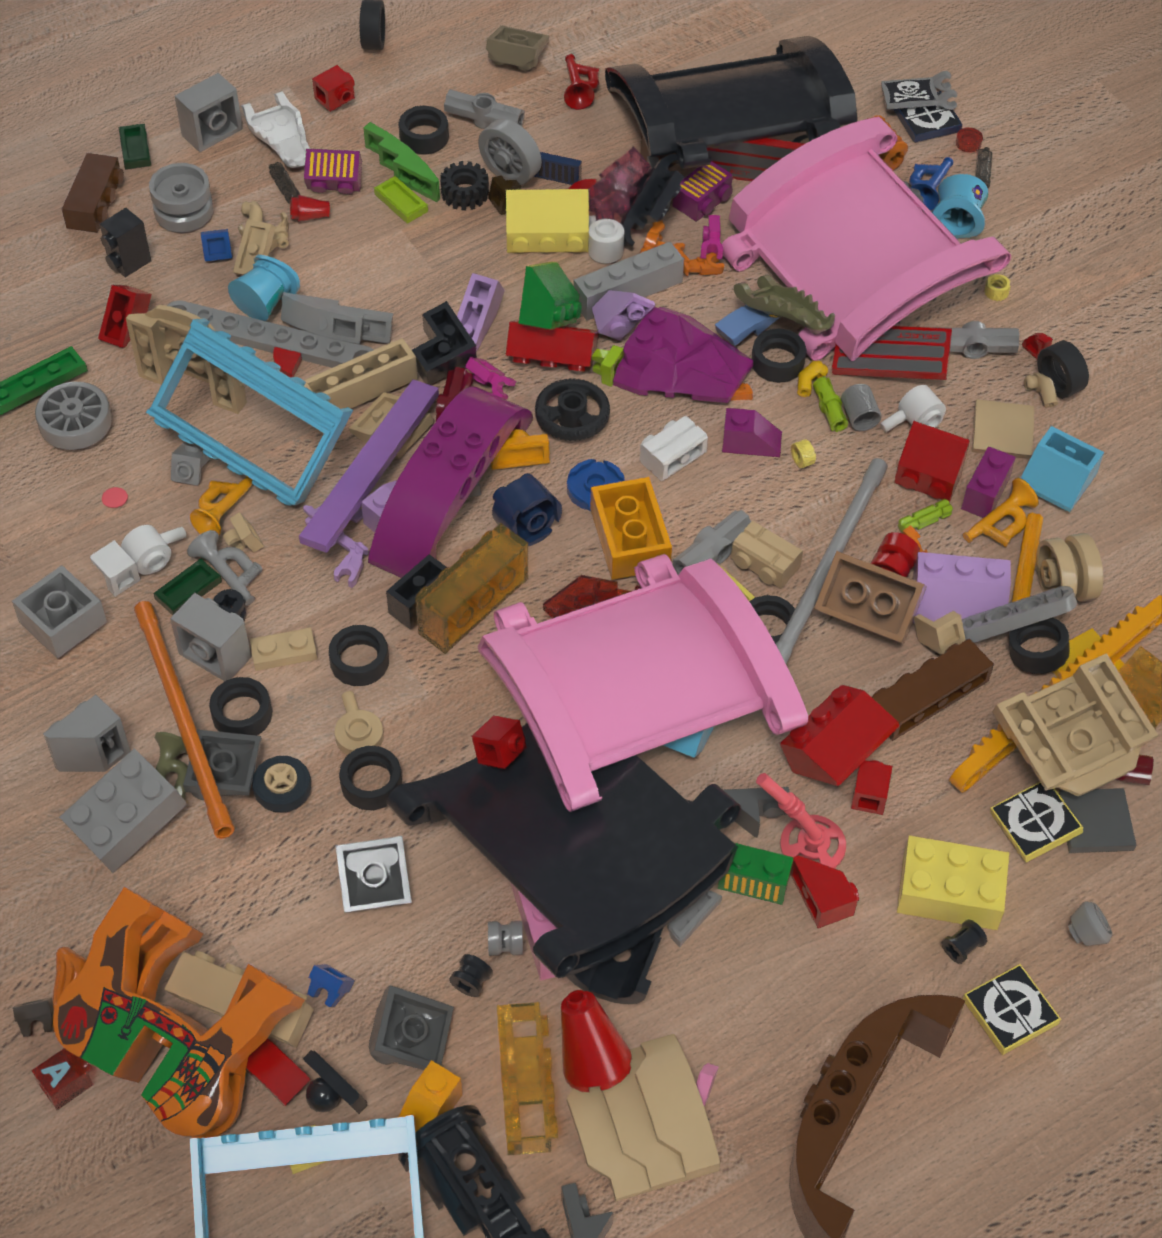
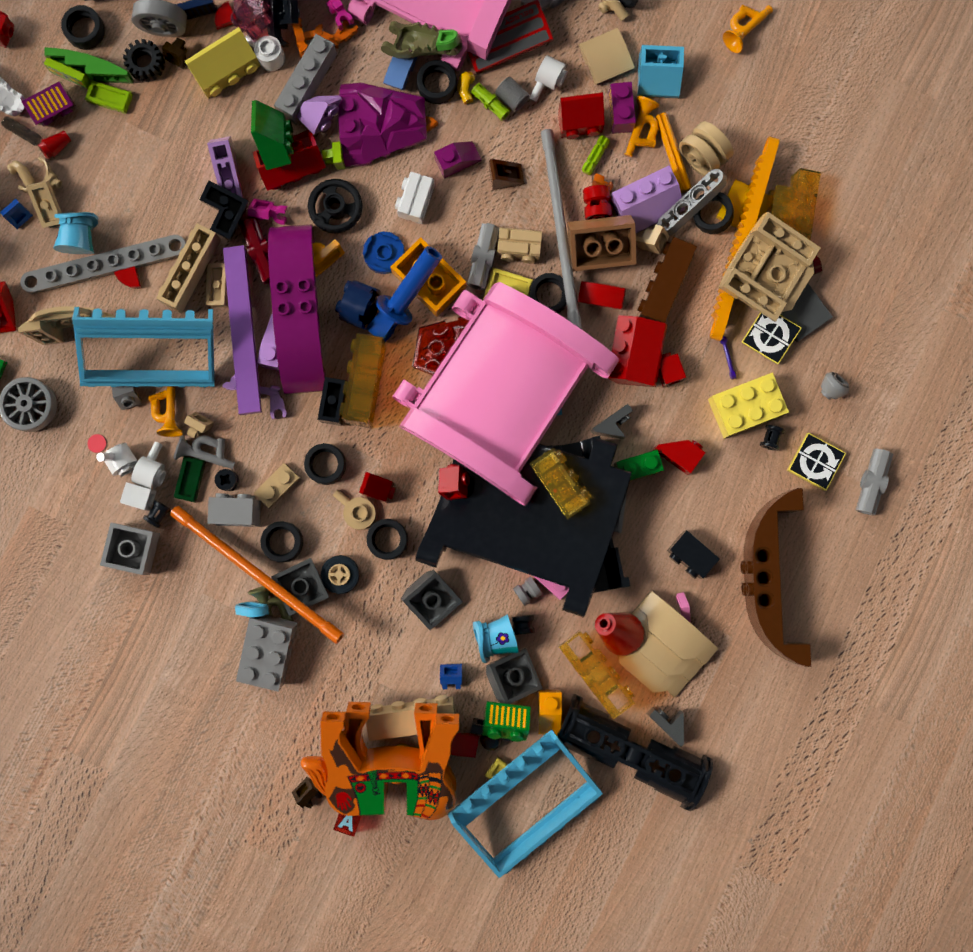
camera: 30 degrees left, 30 degrees up
(87, 738) = (213, 619): light grey slope -> none
(120, 597) = (163, 511): none -> black bush
(123, 513) = (119, 459): none -> white piece
(151, 752) = (251, 609): none -> medium azure tile
(335, 321) = (138, 231): light grey slope -> none
(360, 1068) = (506, 721): none -> green brick
(374, 156) = (67, 73): none -> lime tile
(400, 706) = (377, 488): none -> red slope
(421, 962) = (495, 638): none -> medium azure hat
(562, 534) = (395, 309): none -> blue piece
(636, 807) = (561, 482): none -> clear yellow brick
(761, 1022) = (693, 555): none -> black brick
(797, 477) = (505, 174): none -> reddish brown slope
(803, 453) = (496, 151): light yellow axle -> none
(813, 838) = (644, 421): coral dish -> none
(815, 309) = (447, 40): none -> bright green tile
(836, 659) = (601, 295): none -> red slope
(967, 796) = (732, 373): none -> dark purple hinge
(1081, 1078) = (874, 482): none -> light grey piece

